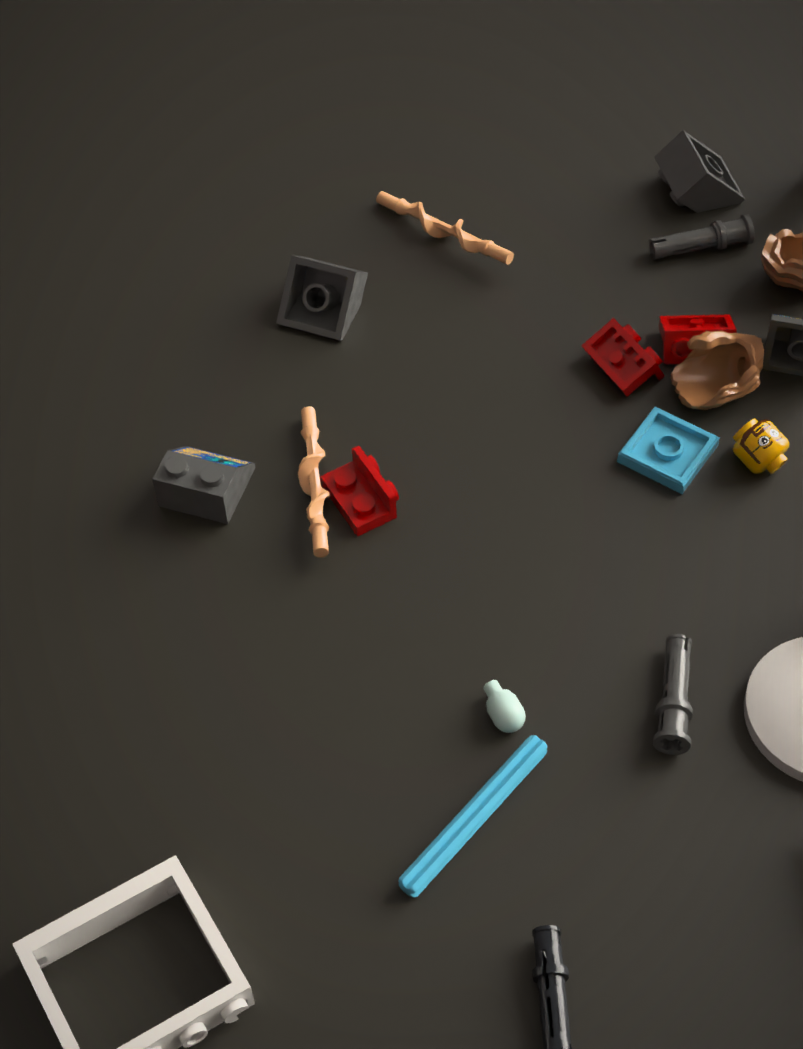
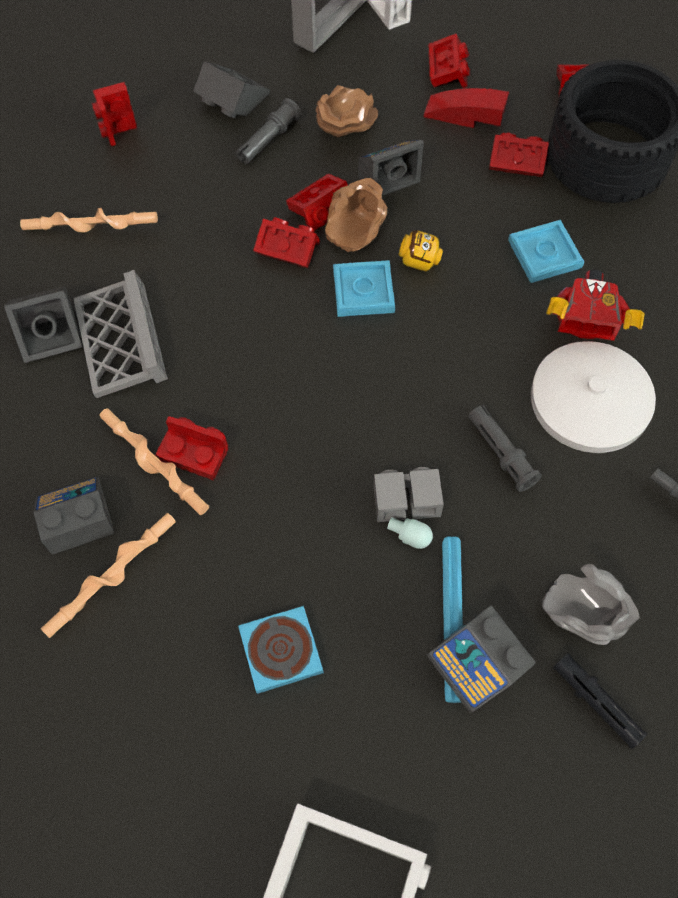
camera: 40 degrees left, 10 degrees up
(192, 557) = (111, 577): none -> light nougat piece
(284, 725) = (280, 649): none -> tile
(406, 354) = (144, 334): none -> light grey fence
(459, 862) = (481, 659): none -> slope
(544, 671) = (424, 494): none -> light grey piece
(551, 134) = (114, 109): none -> red bracket
(622, 898) = (591, 605): none -> light grey hair

